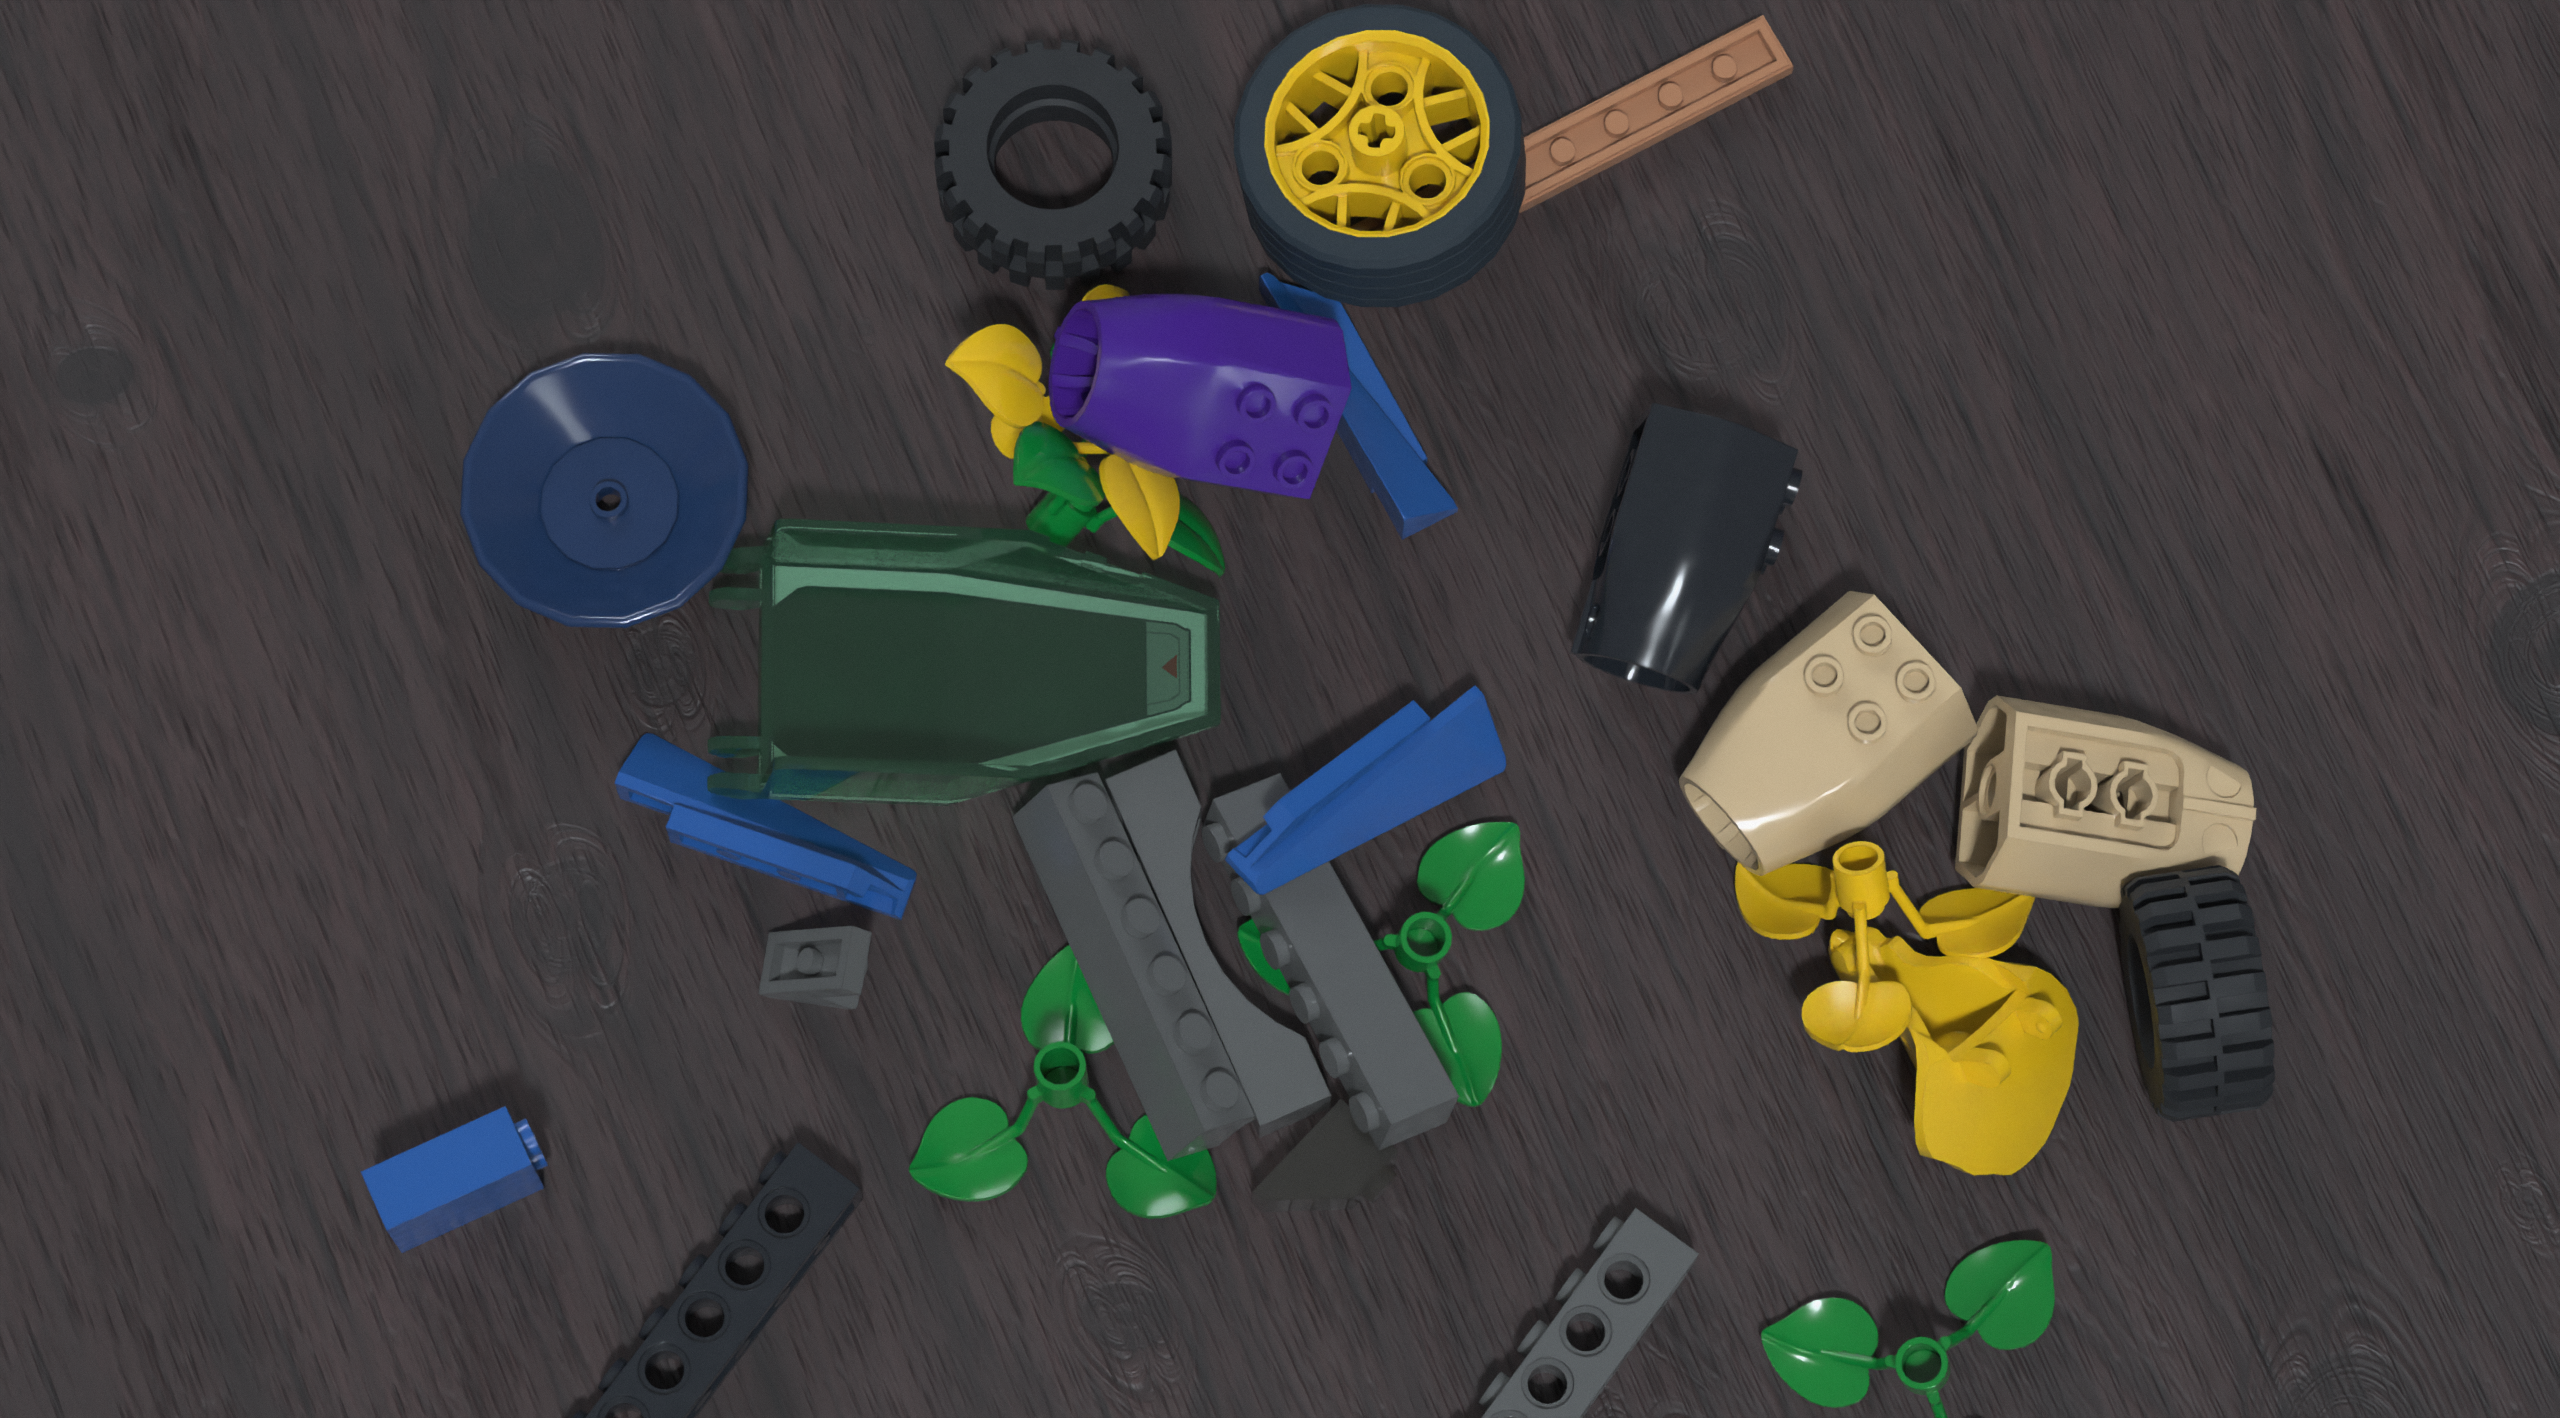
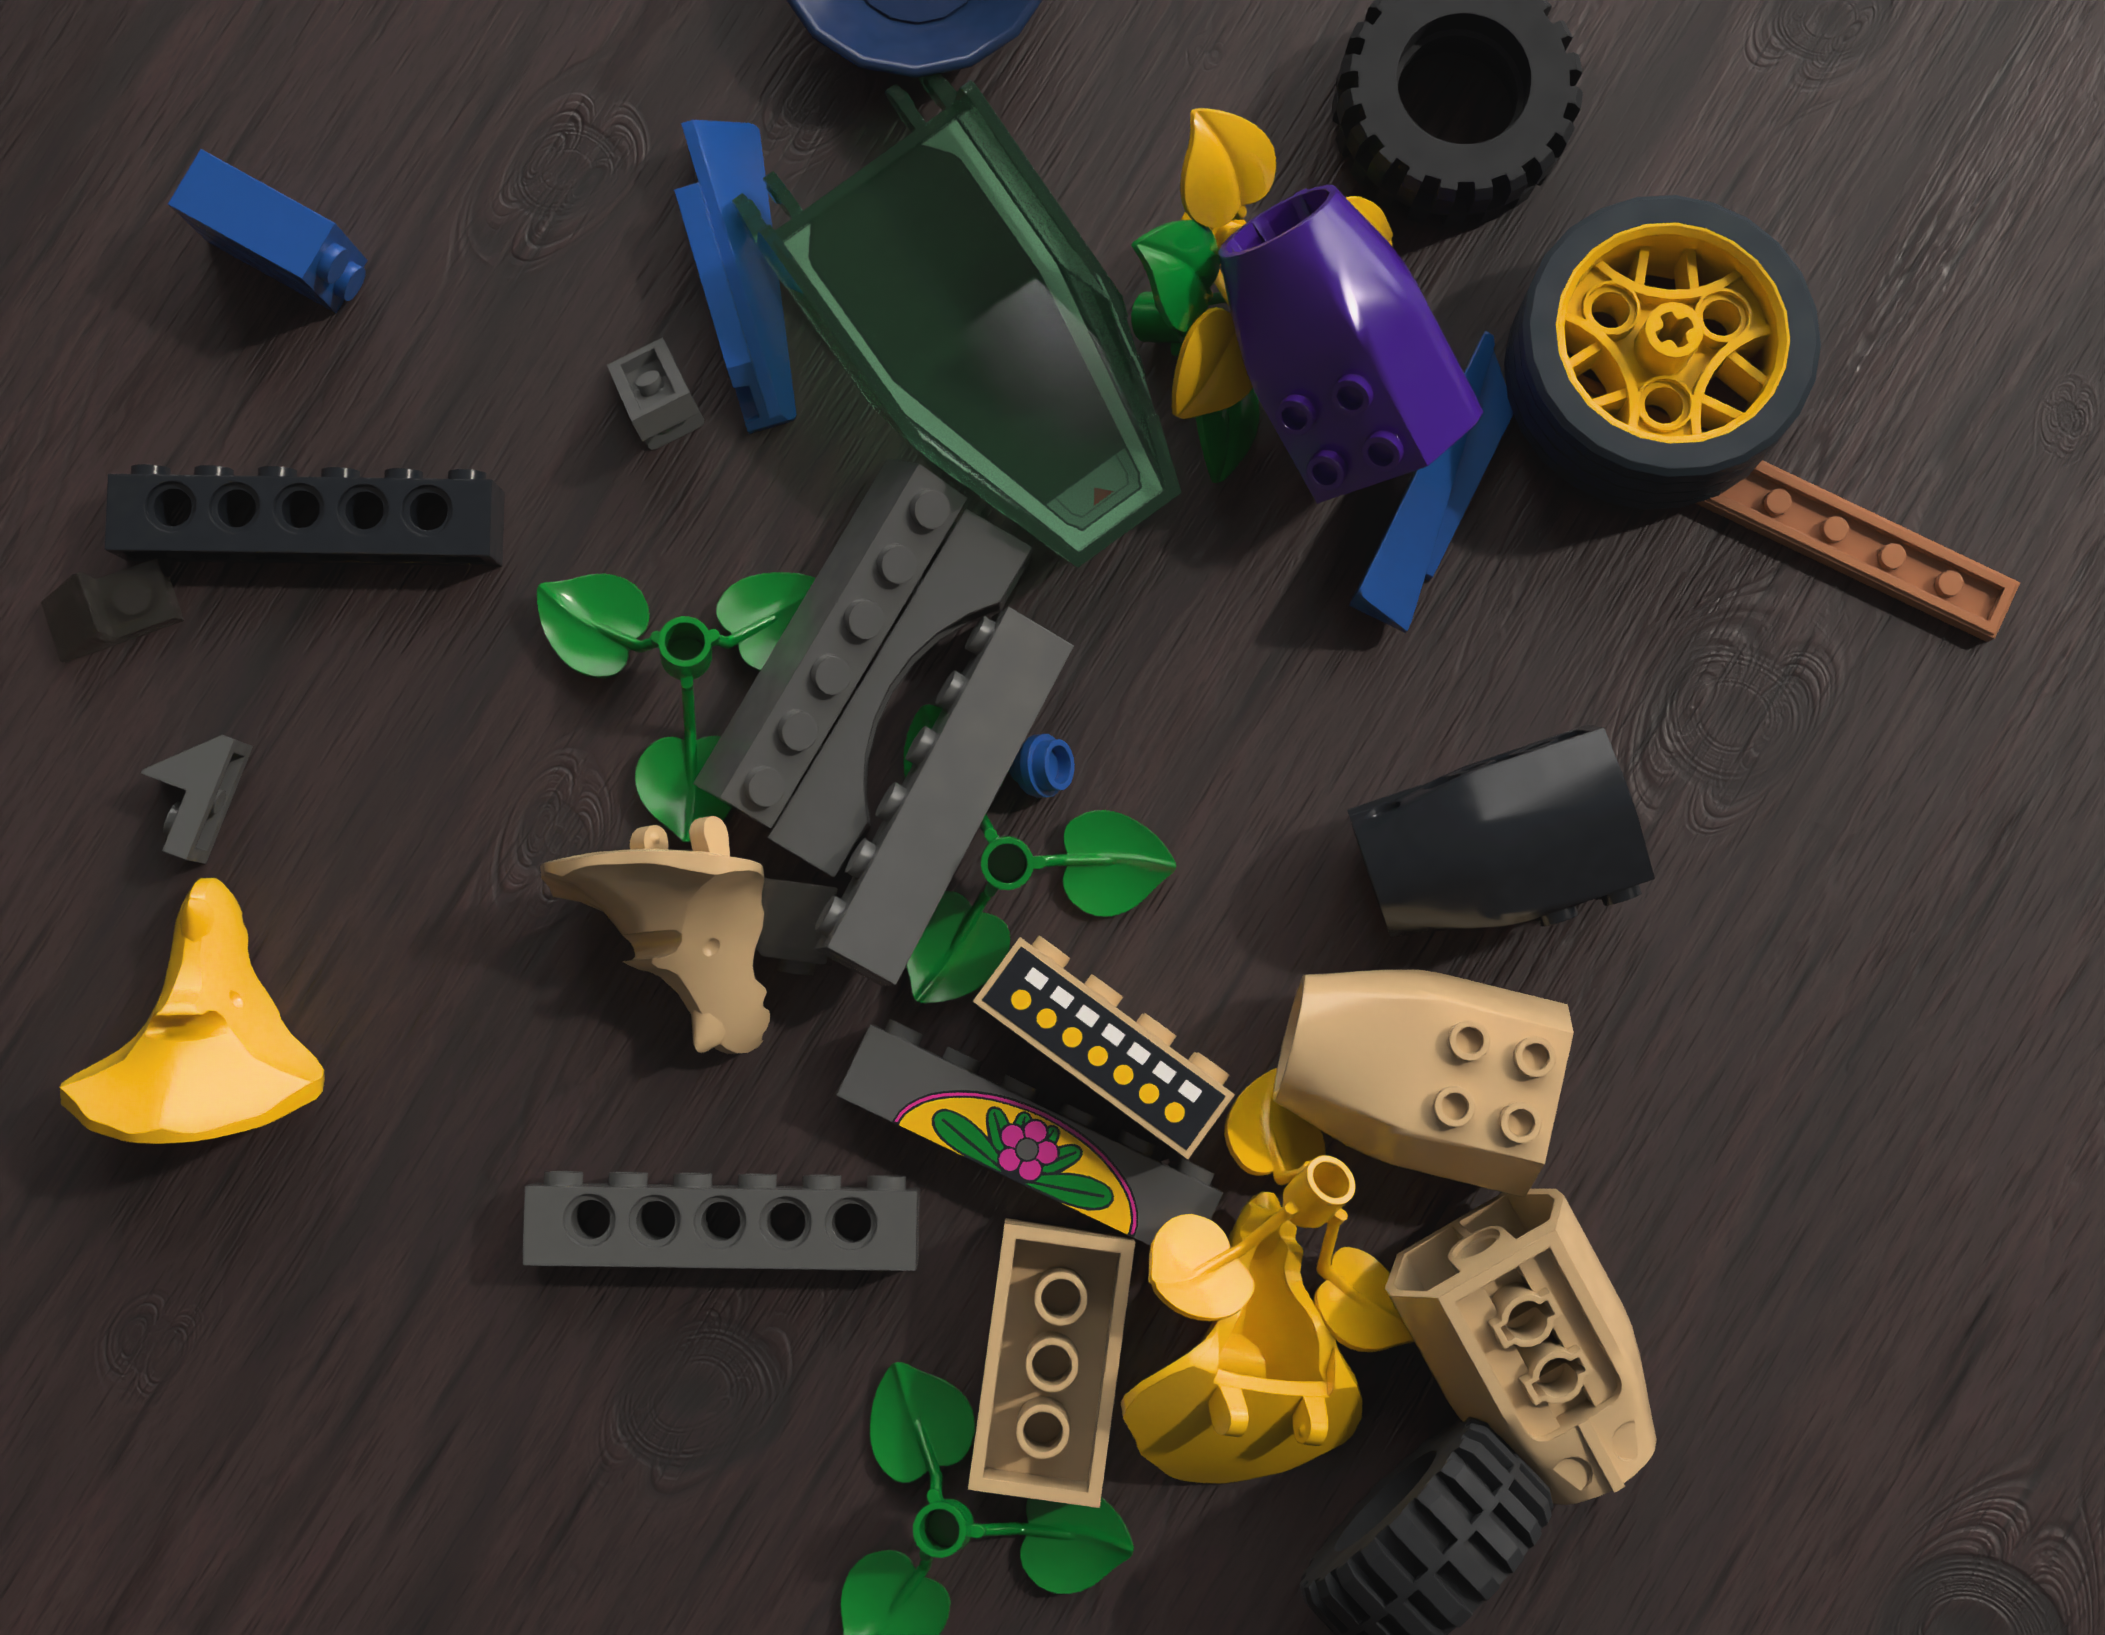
camera: 55 degrees right, 10 degrees up
(1280, 1232) = (688, 920): none -> tan animal
(1362, 872) = (1043, 766): none -> blue plate
(1373, 788) = (1111, 728): blue wedge -> none
(1623, 976) = (1105, 1047): none -> brick
(1648, 1101) = (1021, 1138): none -> brick
(1848, 1198) = (1052, 1363): none -> tan brick

